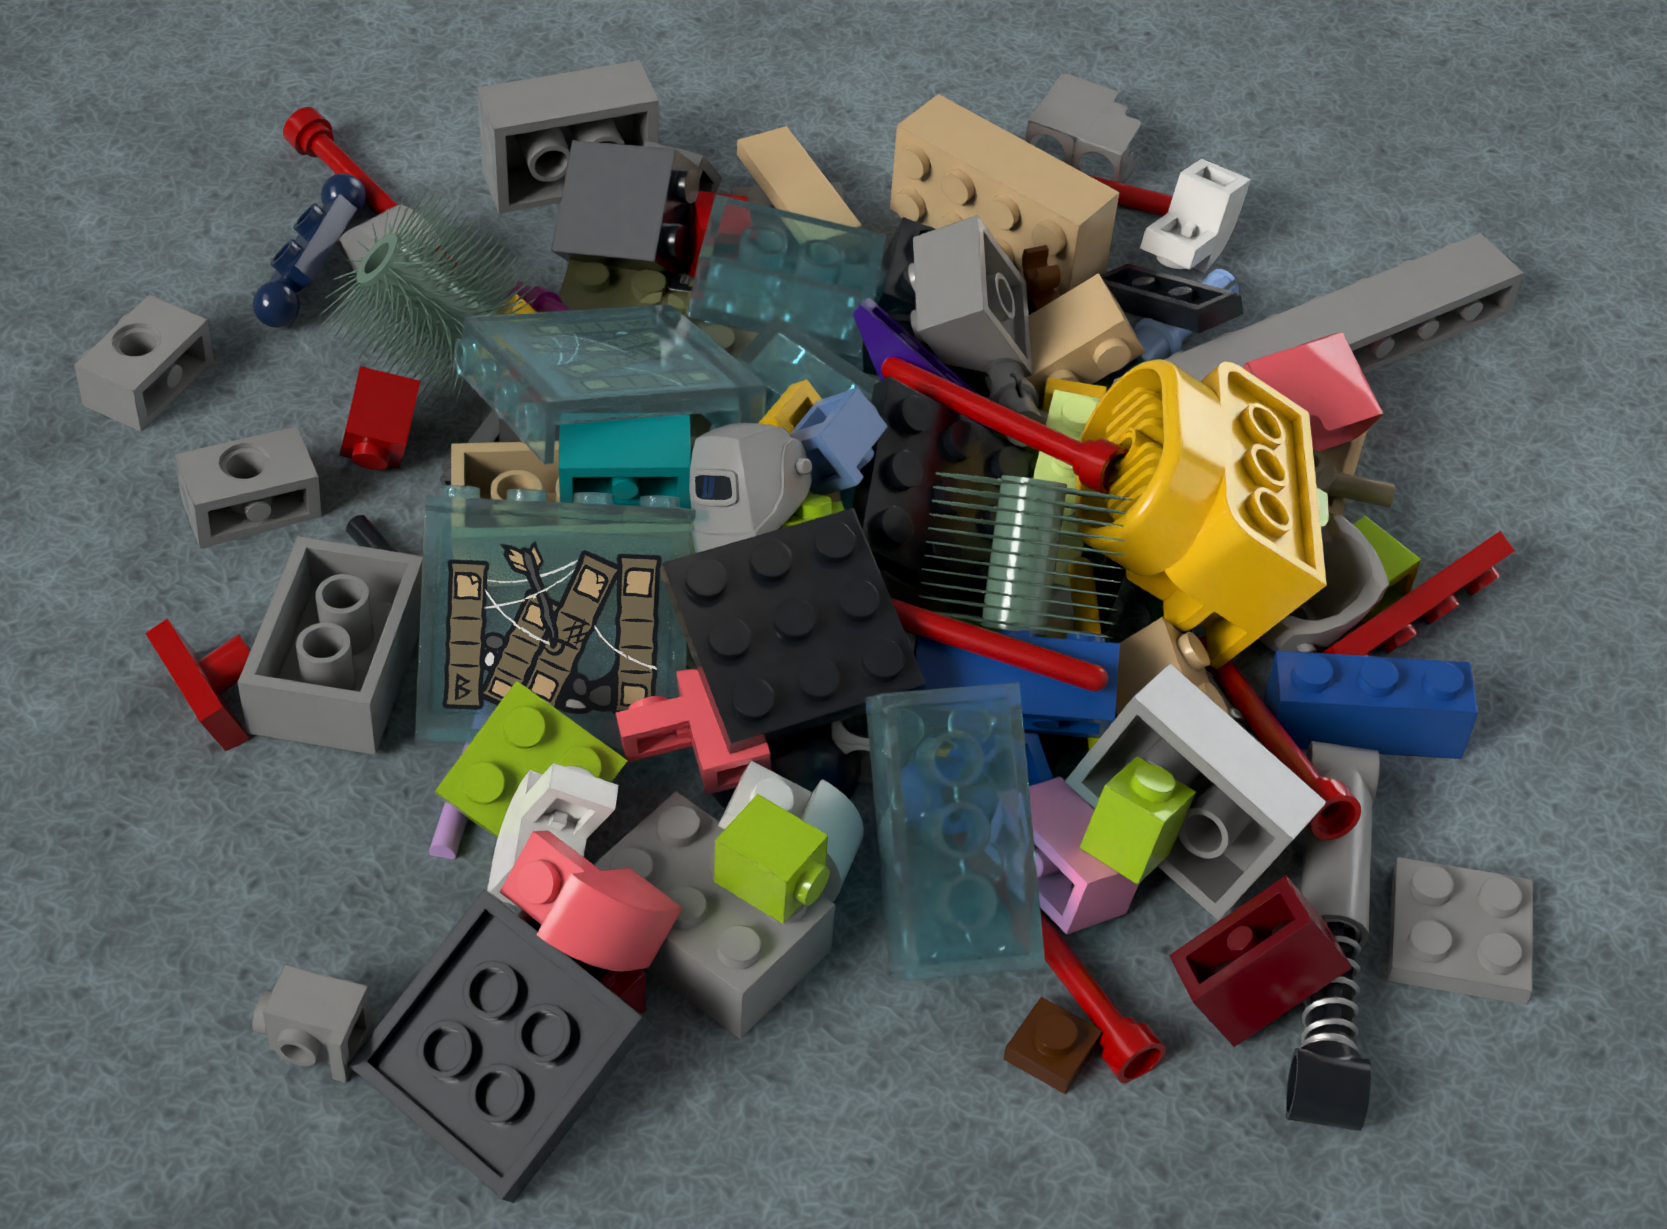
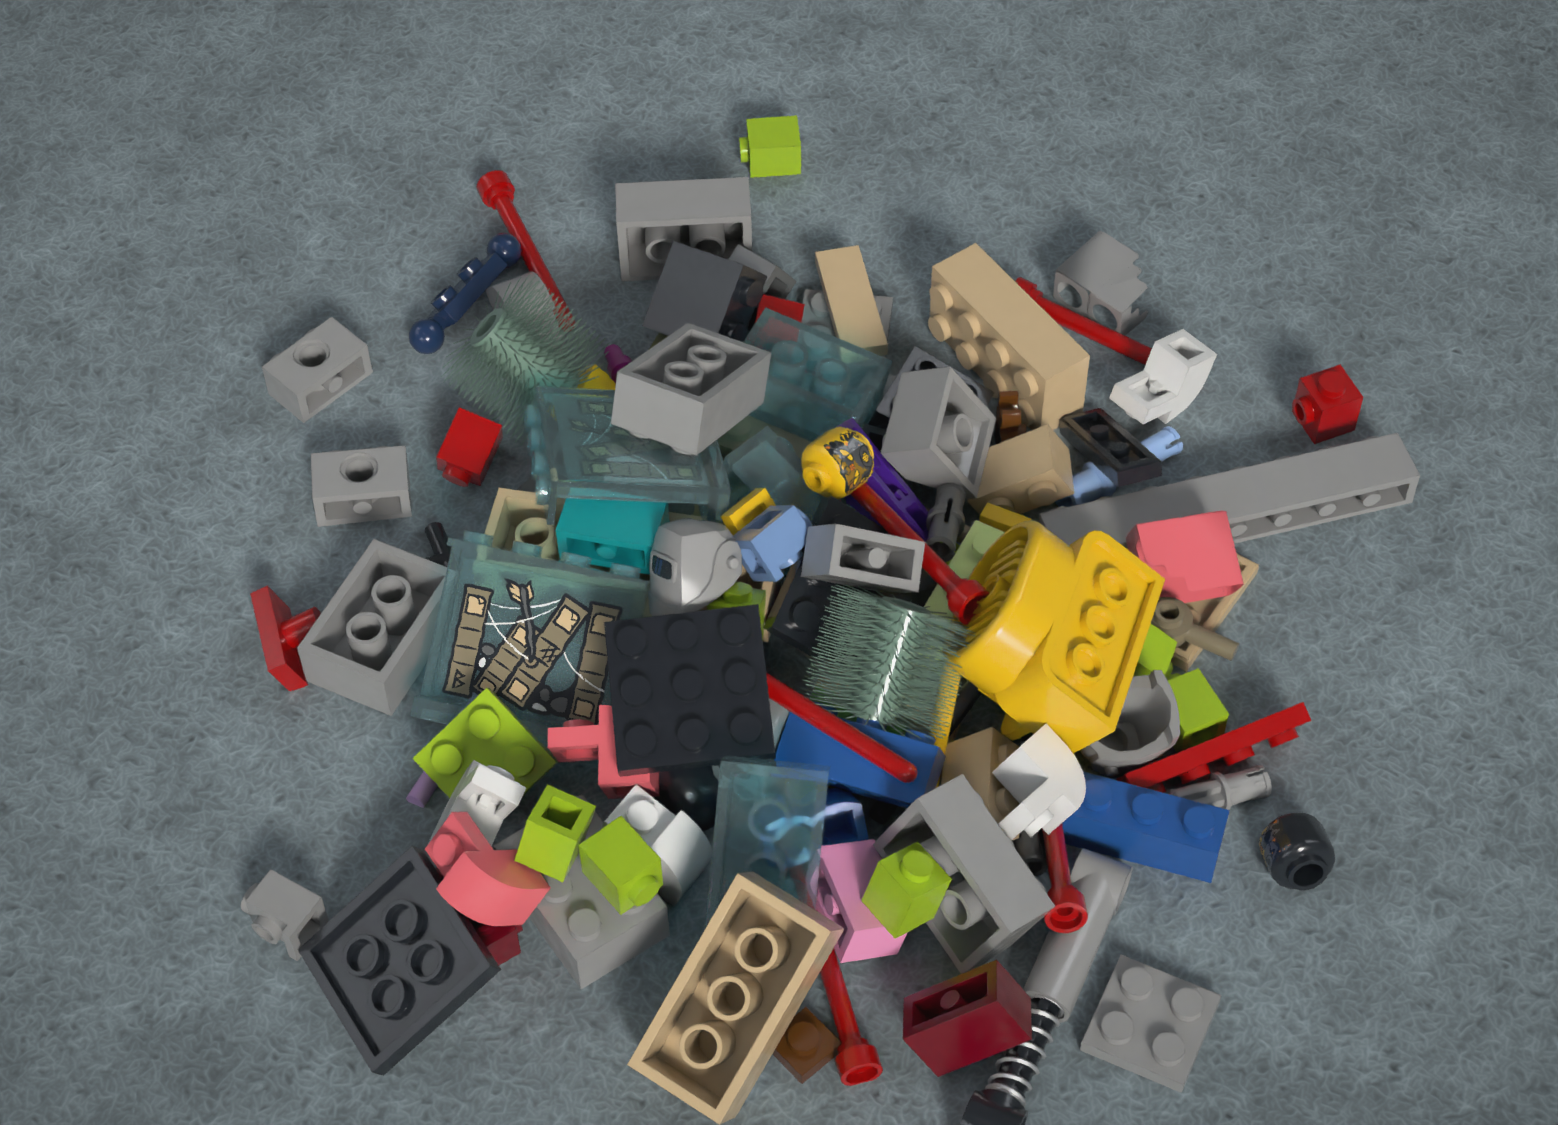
camera: 20 degrees right, 5 degrees up
(636, 34) = (772, 146): none -> lime brick
(669, 286) = (690, 389): none -> light grey brick
(676, 833) = (554, 832): none -> lime brick
(881, 340) = (837, 462): none -> yellow head
(955, 437) = (863, 558): none -> light grey brick
(974, 990) = (735, 997): none -> tan brick
(1250, 665) = (1045, 783): none -> white brick
(1385, 219) = (1327, 404): none -> red brick
(1451, 643) = (1228, 789): none -> light grey axle
(1553, 700) = (1297, 851): none -> black head

